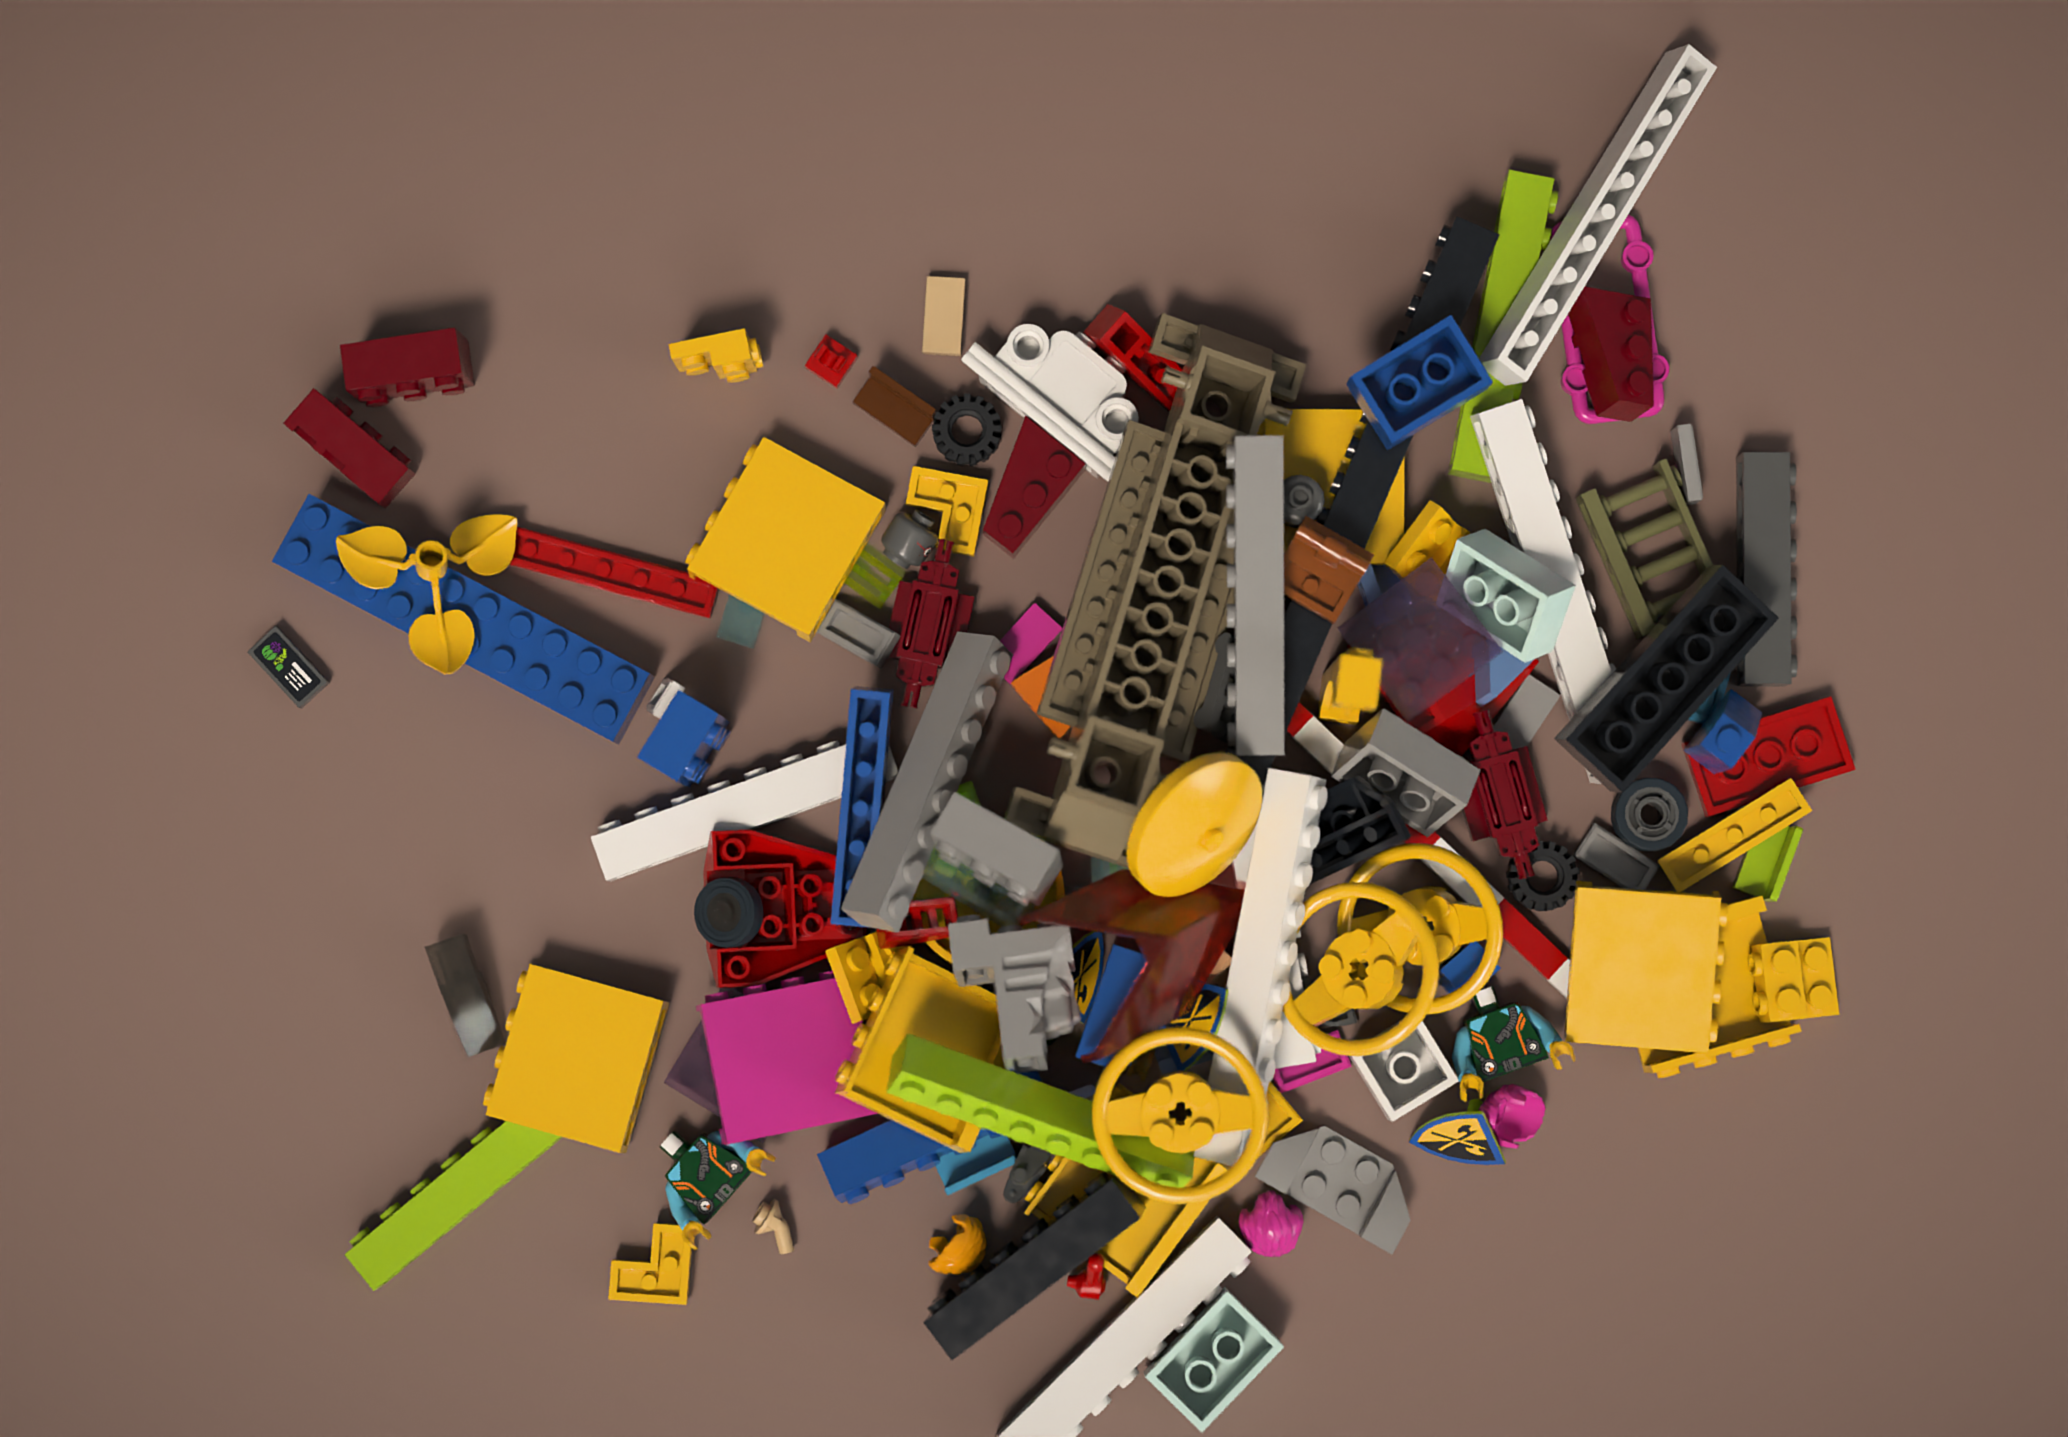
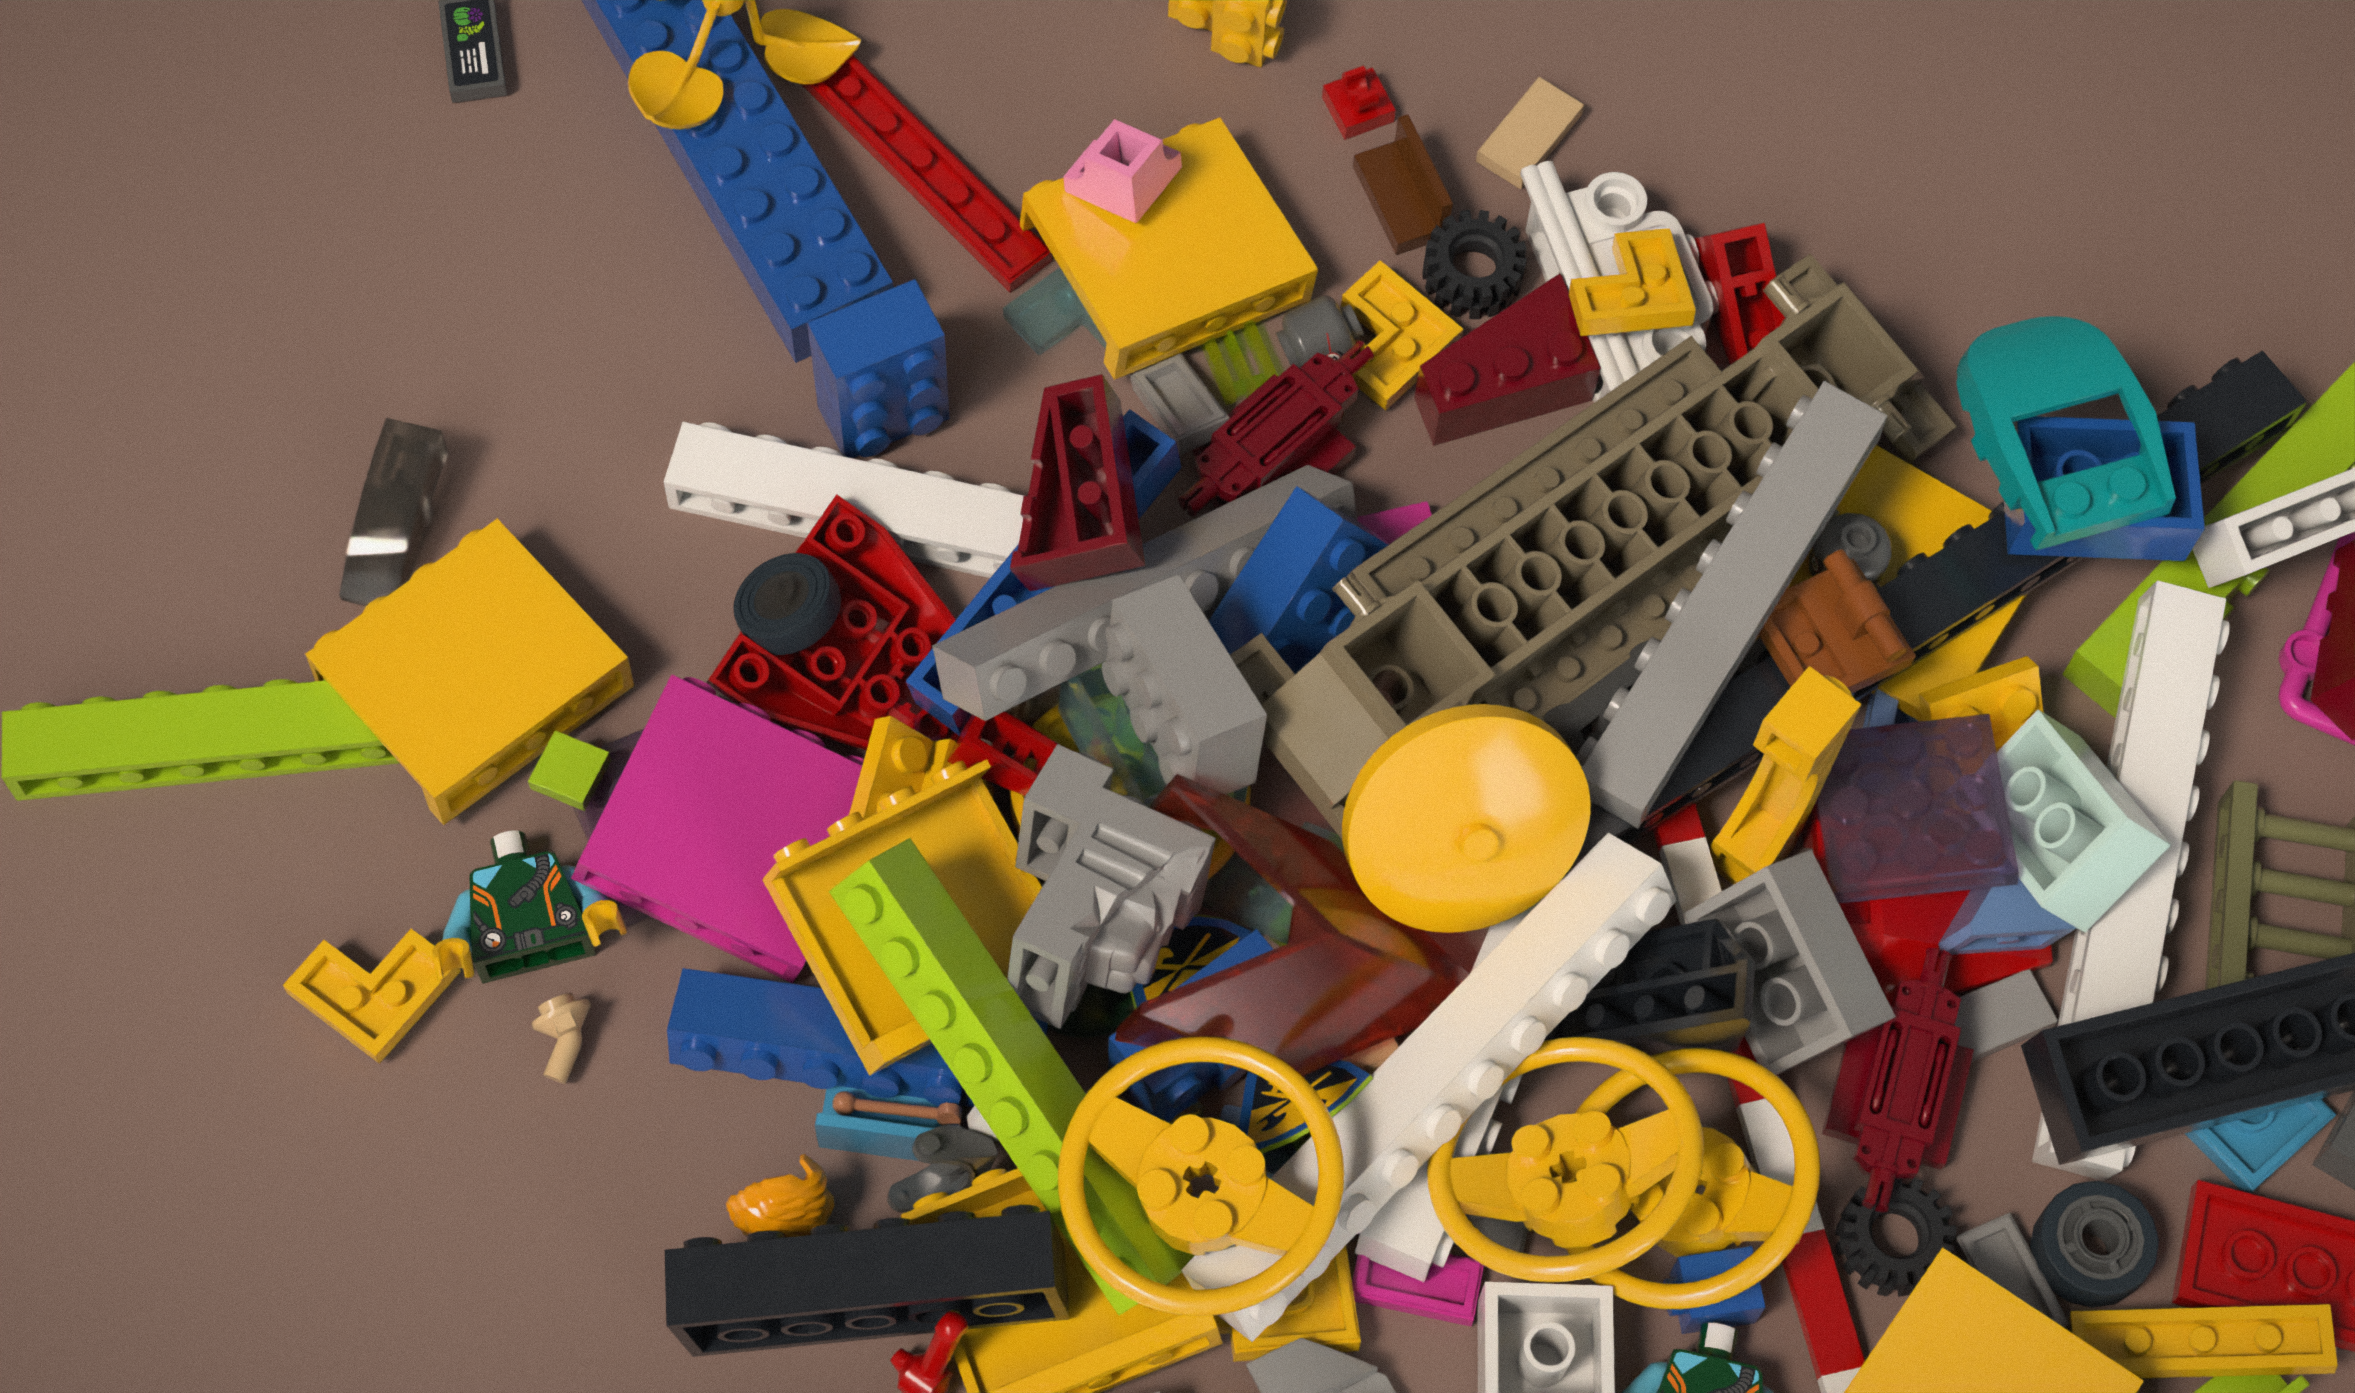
camera: 25 degrees right, 20 degrees down
(675, 1082) = (569, 770): none -> lime tile
(738, 521) = (1123, 171): none -> bright pink brick
(861, 763) = (1080, 492): none -> dark red wedge
(951, 1166) = (947, 1113): none -> nougat hinge
(1007, 732) = (1291, 579): none -> blue brick
(1086, 407) = (1645, 293): none -> yellow plate
(1350, 343) = (2046, 368): none -> teal slope
(1725, 734) = (2260, 1185): blue slope -> none

